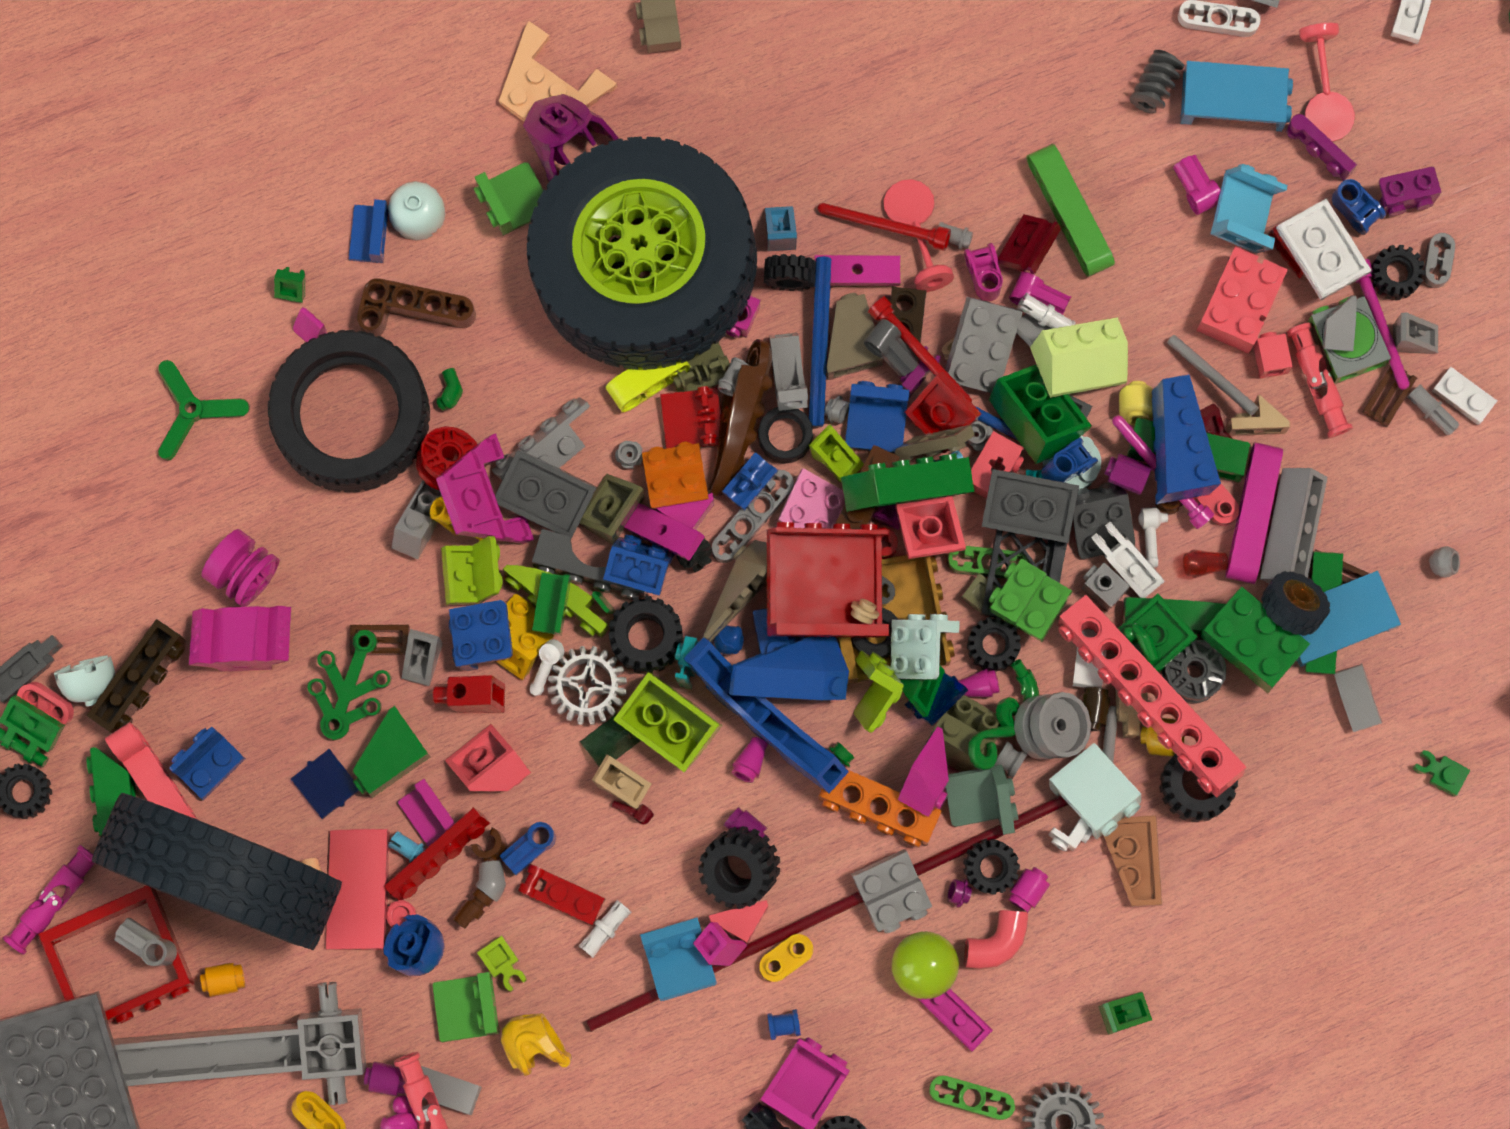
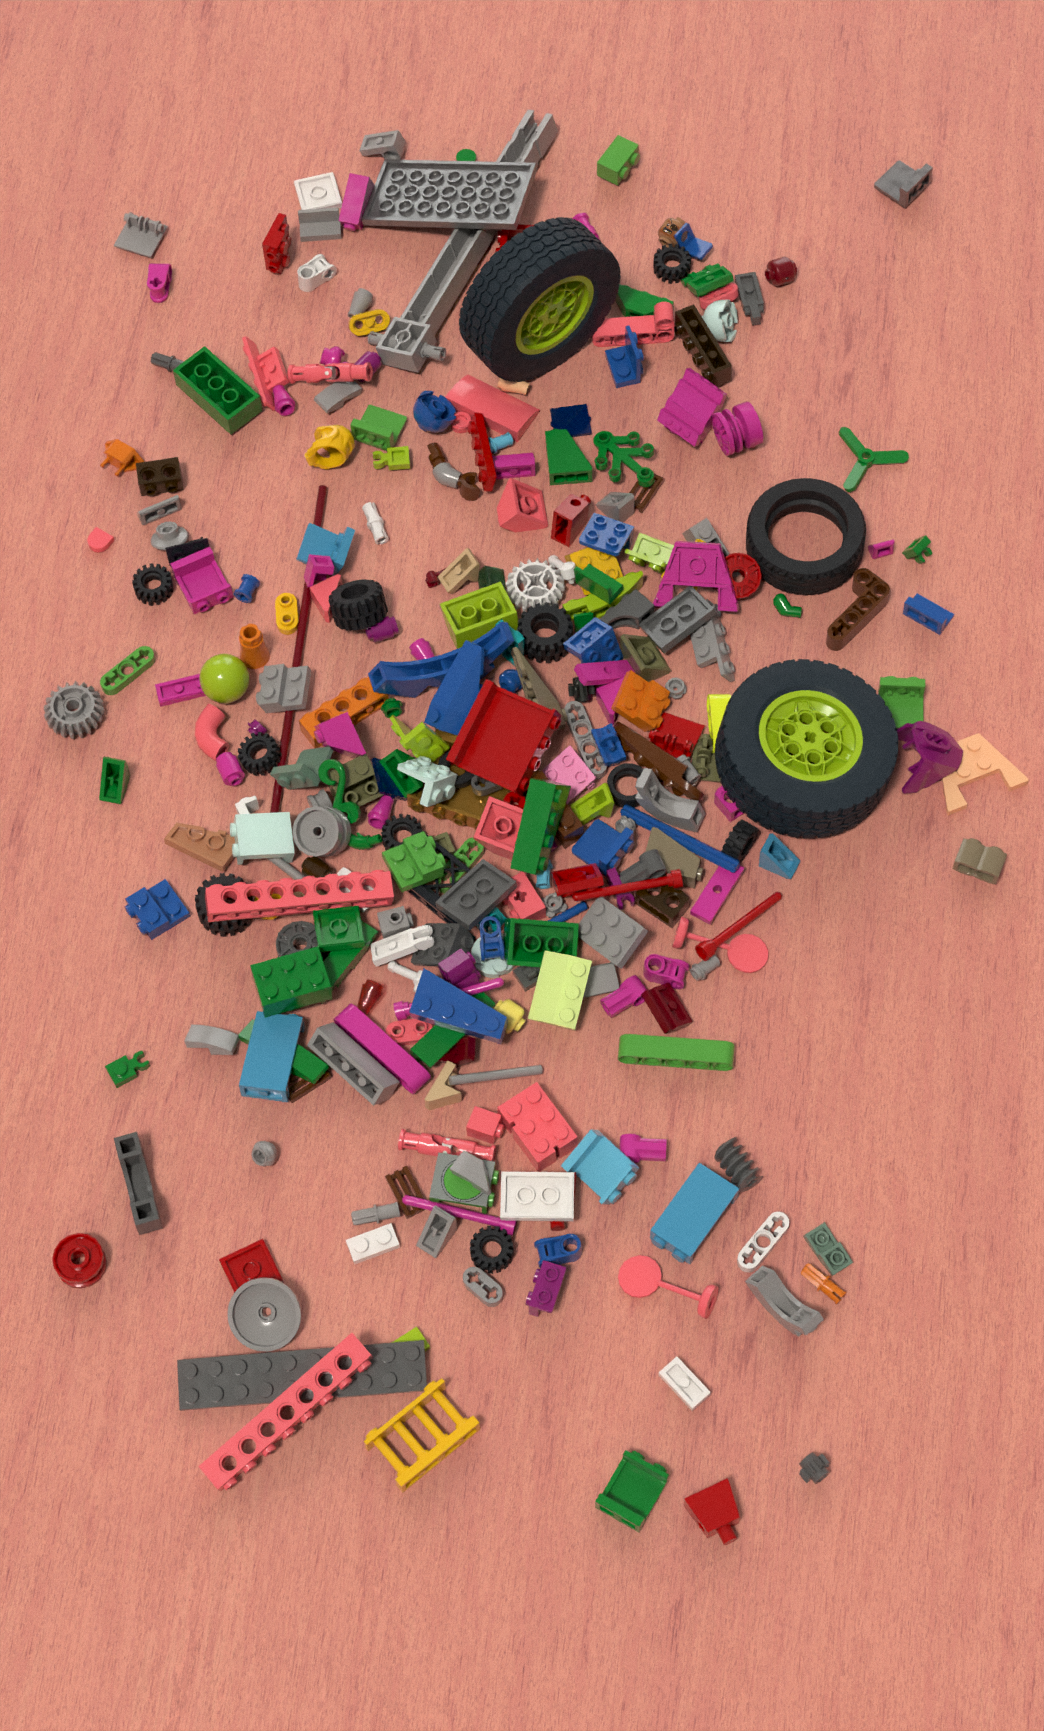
camera: 125 degrees right, 15 degrees down
(416, 210) = (927, 646): light aqua cylinder -> none
(525, 849) = (454, 506): blue piece -> none
(562, 895) = (413, 511): red plate -> none
(853, 971) = (252, 647): none -> orange plant
(864, 611) = (471, 753): tan plate -> none
(935, 442) = (558, 861): dark tan plate -> none
(1044, 314) = (606, 986): white pin -> none
(1144, 640) = (346, 911): green arm -> none
(1244, 861) = (156, 909): none -> blue plate
(1295, 603) = (292, 1000): black wheel -> none
(1320, 146) = (618, 1251): magenta plate -> none

